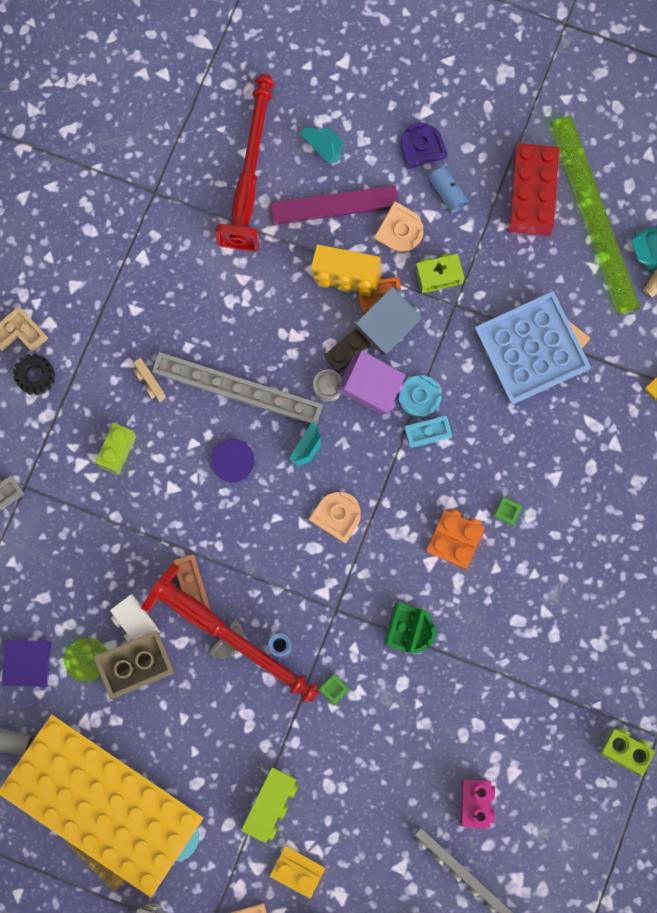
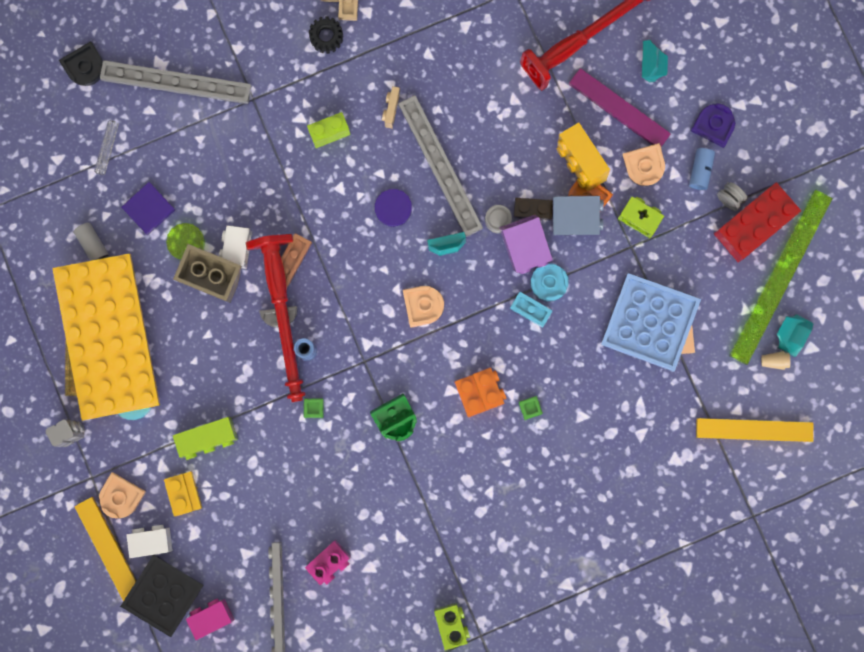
camera: 45 degrees right, 5 degrees up
(494, 188) = (732, 196): none -> light grey wheel

